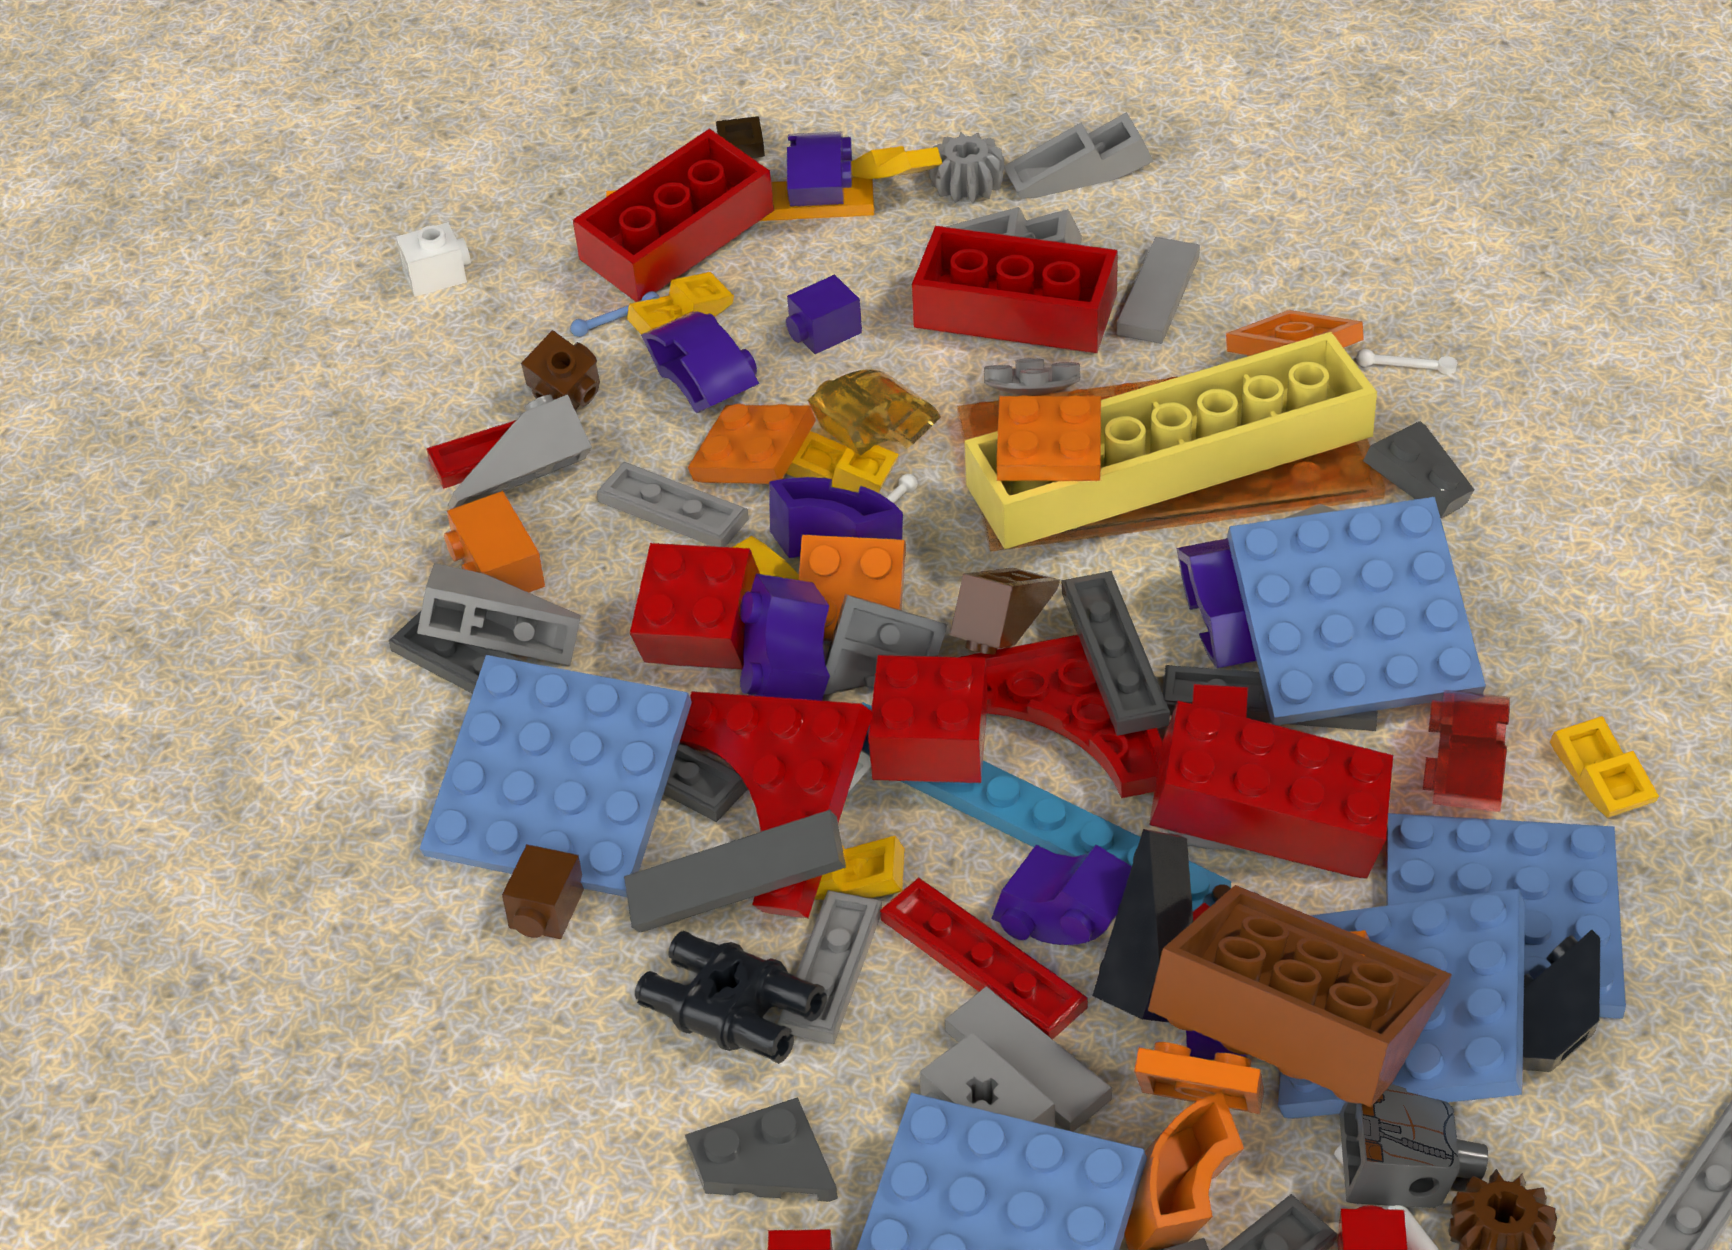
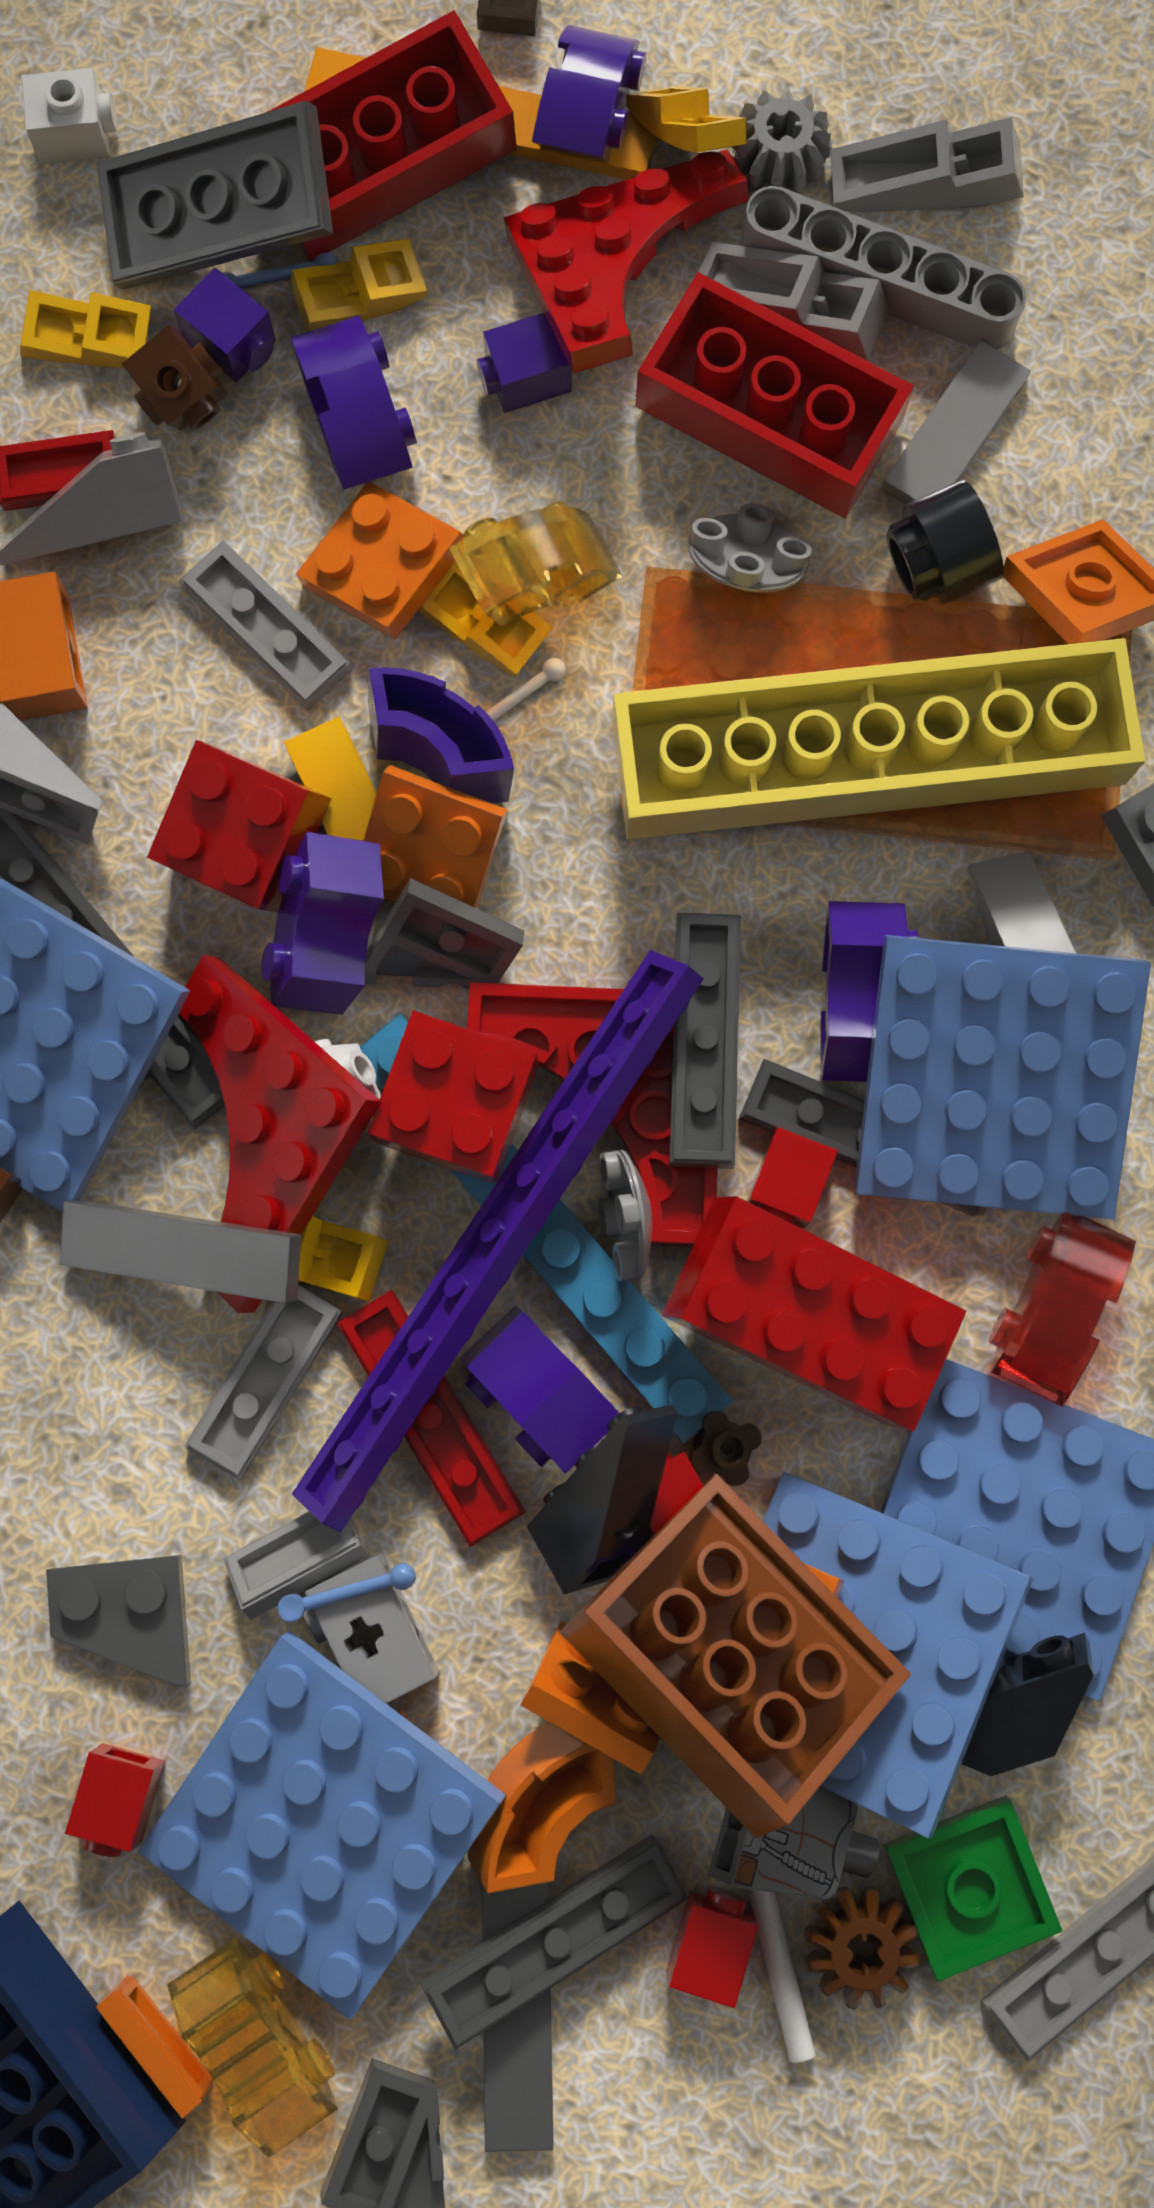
camera: 10 degrees right, 35 degrees up
(493, 372) = (82, 332): none -> yellow slope
(561, 265) = (215, 196): none -> dark grey tile
(598, 332) = (228, 324): none -> dark purple brick
(731, 996) = (168, 1403): black pin -> none
(860, 243) = (595, 242): none -> red plate
(895, 1073) = (290, 1561): none -> light grey tile
(914, 1079) = (294, 1606): none -> medium blue hinge
(990, 814) = (496, 1240): none -> dark purple plate
(999, 607) = (598, 927): reddish brown slope -> none
(1042, 1061) = (446, 1578): light grey tile -> none
(1049, 438) = (714, 729): orange plate -> none
(1094, 764) = (625, 1214): none -> light grey dish
(1101, 213) = (912, 264): none -> light grey beam
(1179, 336) = (945, 545): none -> black piece
(1583, 1161) = (972, 1888): none -> green plate

